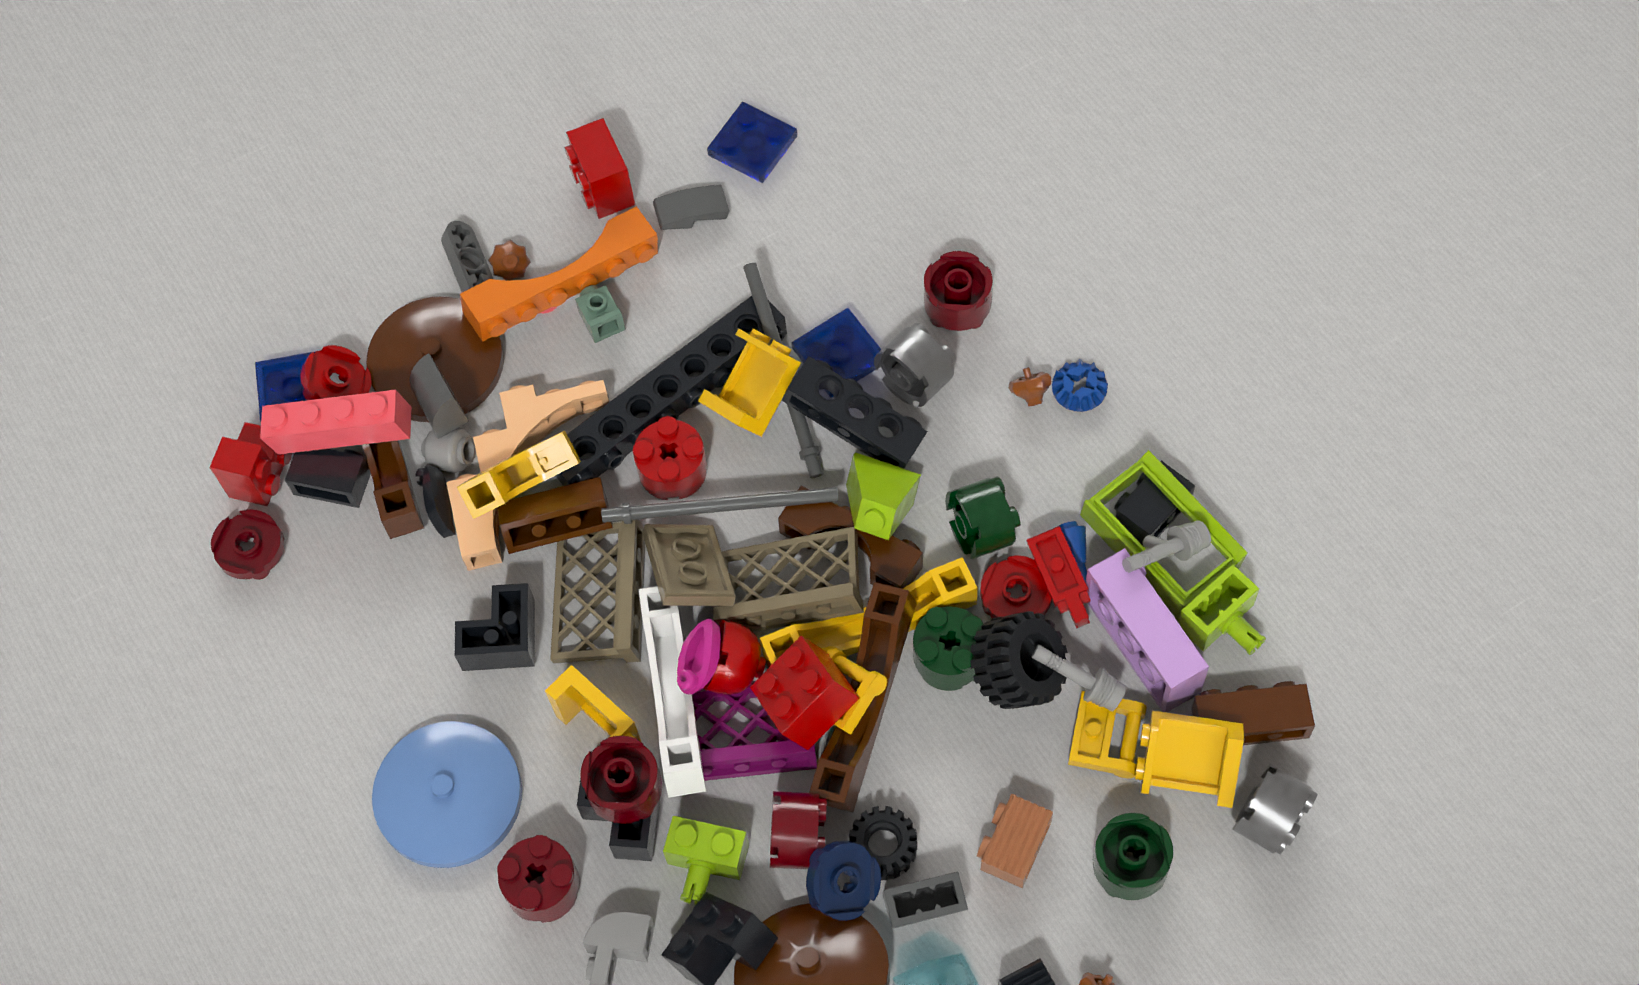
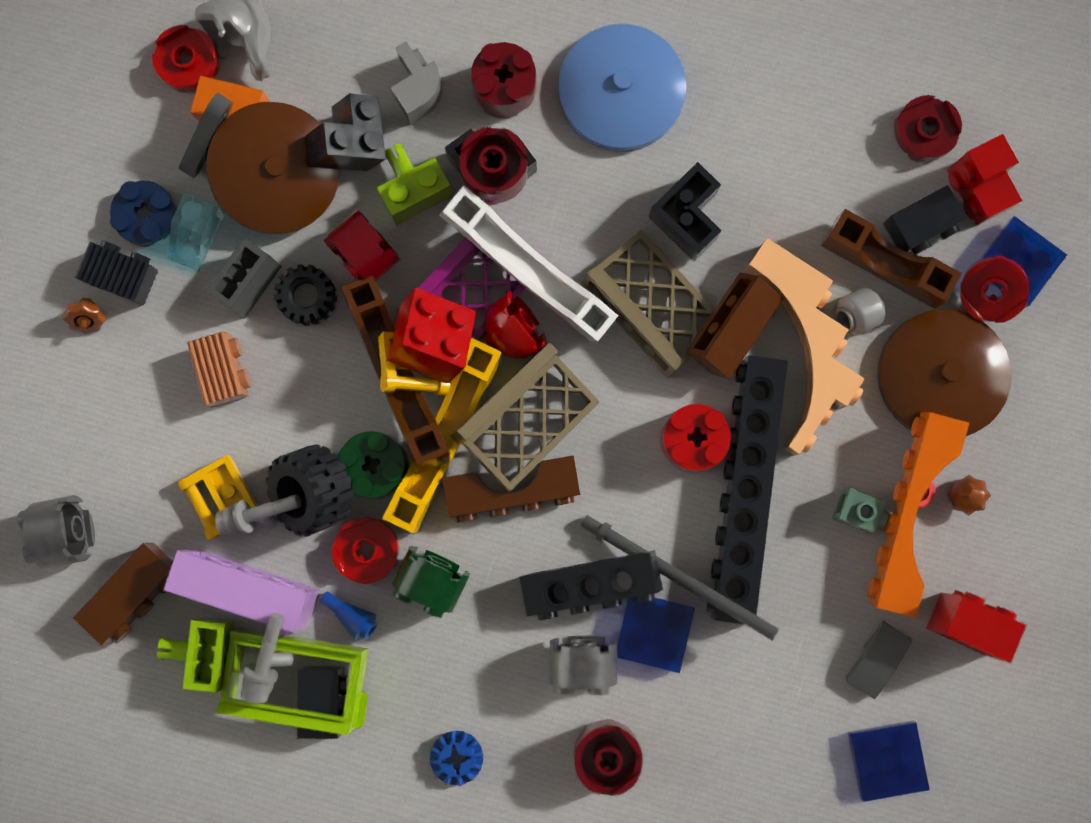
camera: 135 degrees right, 20 degrees up
(336, 422) = (950, 243): coral brick -> none
(436, 397) = (901, 332): dark grey brick -> none
(436, 499) = (833, 267): black arm -> none
(469, 250) = (1022, 468): dark grey beam -> none
(518, 474) = (790, 310): yellow arch -> none
(574, 693) = (564, 214): yellow panel -> none
(628, 513) = (678, 365): dark grey bar -> none
(688, 565) = (603, 365): dark tan tile -> none
(699, 657) = (528, 300): dark pink arm -> none
(754, 383) = (684, 541): yellow panel -> none
(823, 875) = (299, 250): dark blue plate -> none
(879, 495) = (517, 534): lime slope -> none
(1031, 386) = (489, 724): dark orange piece -> none
(1061, 574) = (339, 585): red hinge -> none
(1147, 842) = (111, 423): dark green brick -> none
(1191, 755) = (140, 527): yellow panel -> none

